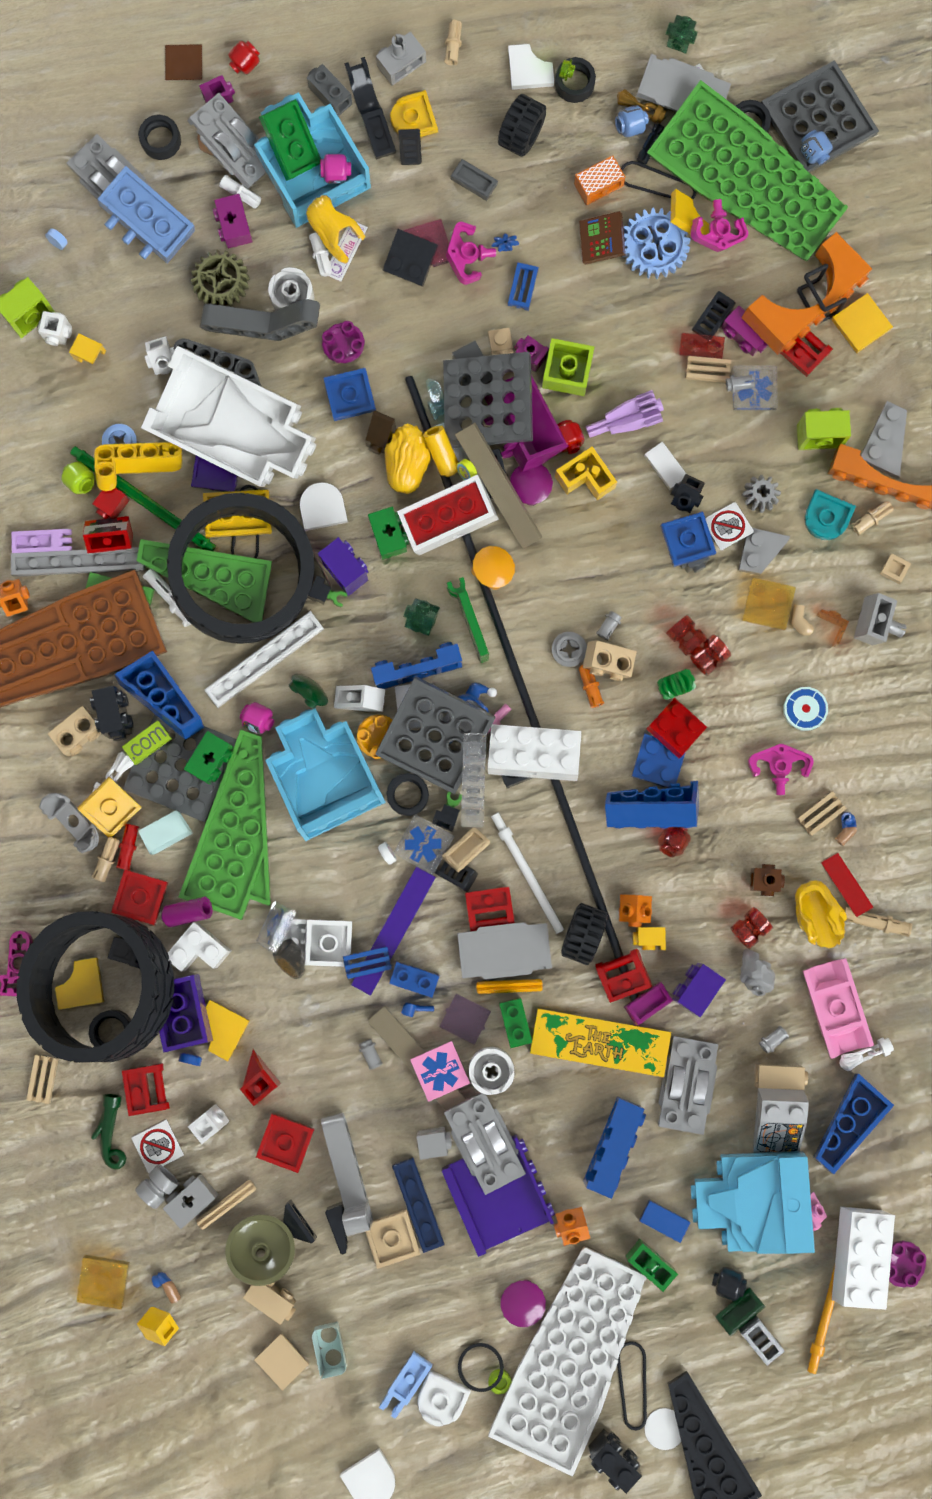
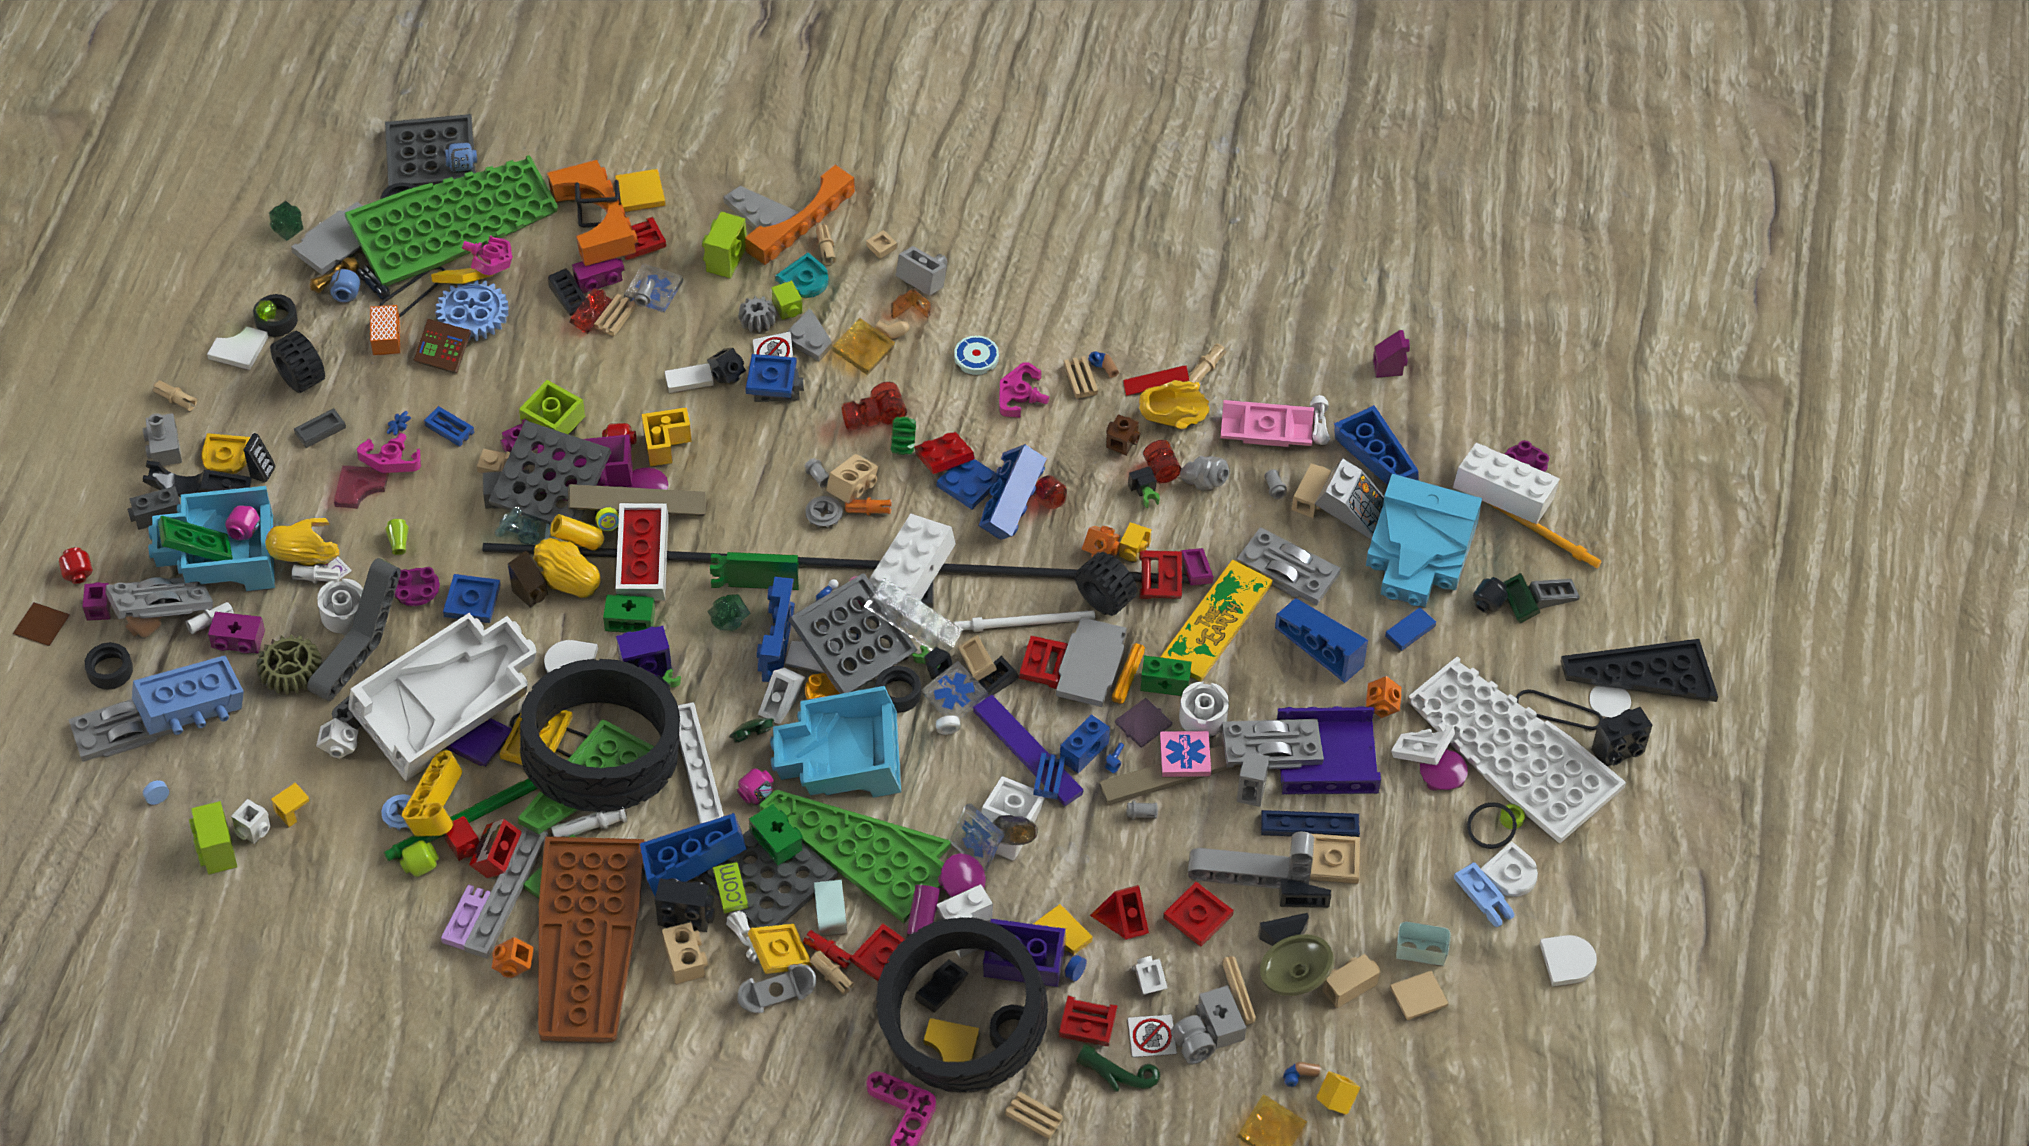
camera: 70 degrees left, 30 degrees down
(237, 930) = (961, 874): none -> magenta dish
(386, 301) = (397, 534): none -> lime cone
(410, 257) = (366, 501): black plate -> none
(493, 567) = (711, 540): light orange dish -> none
(535, 1280) = (1423, 745): none -> white wing
(629, 416) = (627, 381): lavender piece -> none
(651, 1265) = (1445, 645): green brick -> none
(698, 989) = (1200, 517): dark purple brick -> none
(721, 920) = (1145, 484): none -> black piece
(789, 513) = (787, 300): none -> lime brick

